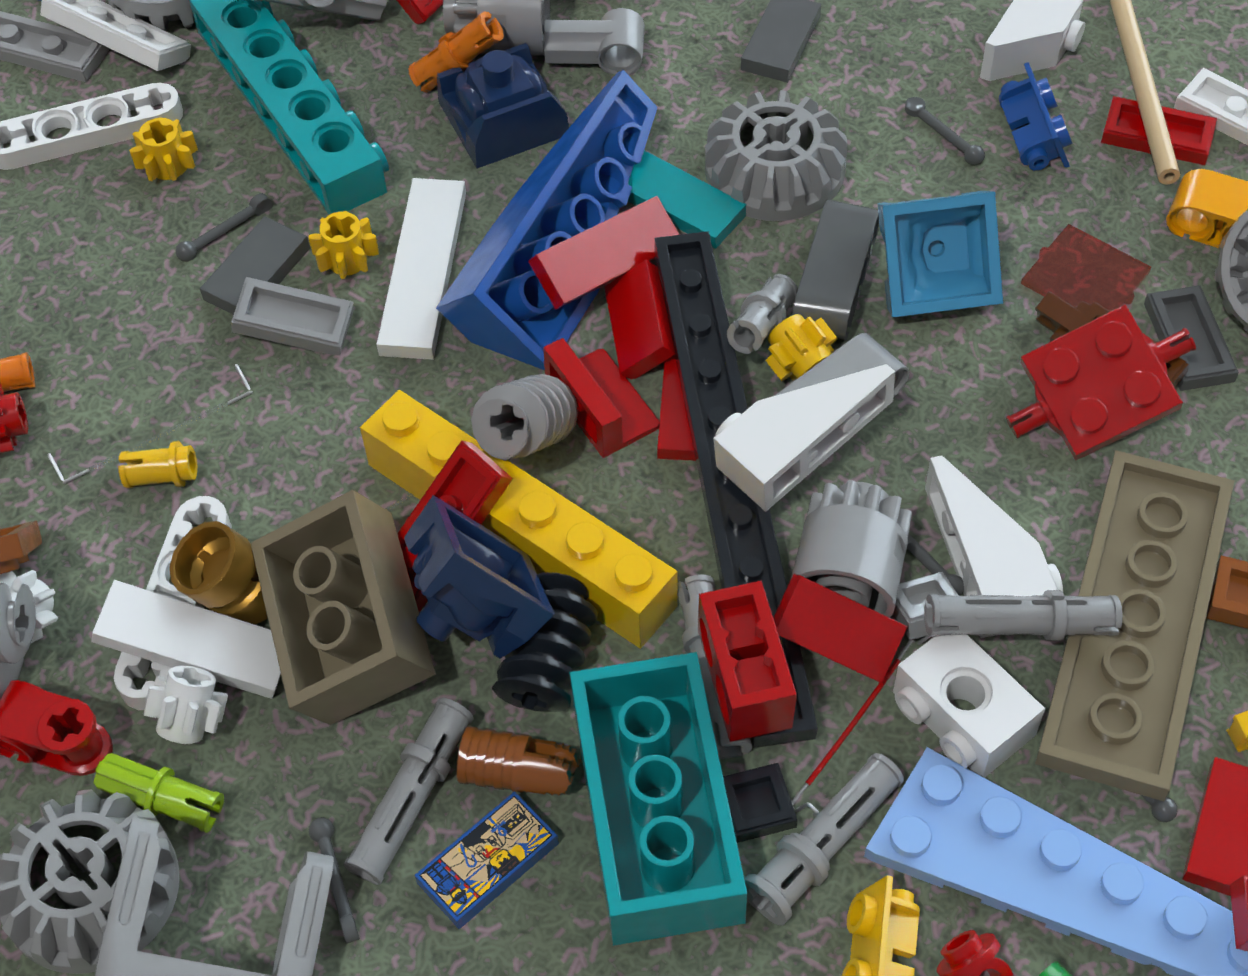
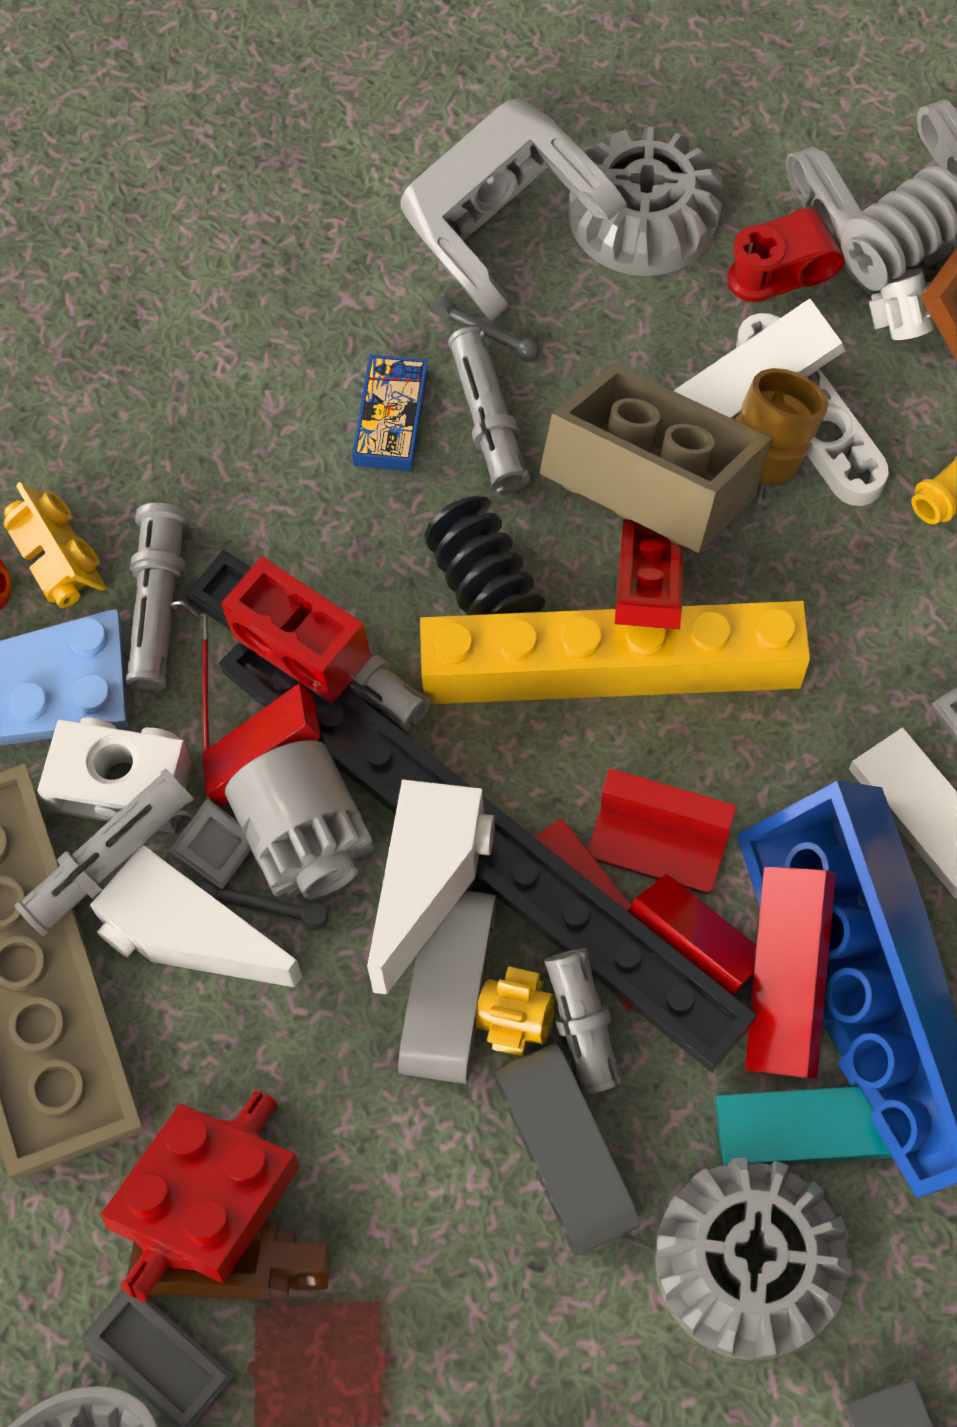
camera: 140 degrees right, 10 degrees up
(158, 791) = (660, 281): lime axle -> none
(185, 704) = (715, 321): white gear -> none
(474, 581) = (566, 534): dark blue brick -> none
(515, 762) = (437, 474): dark orange hinge -> none
(524, 416) = (680, 716): light grey piece -> none
(657, 799) = (287, 498): teal brick -> none
(941, 253) = (464, 1219): dark azure brick -> none

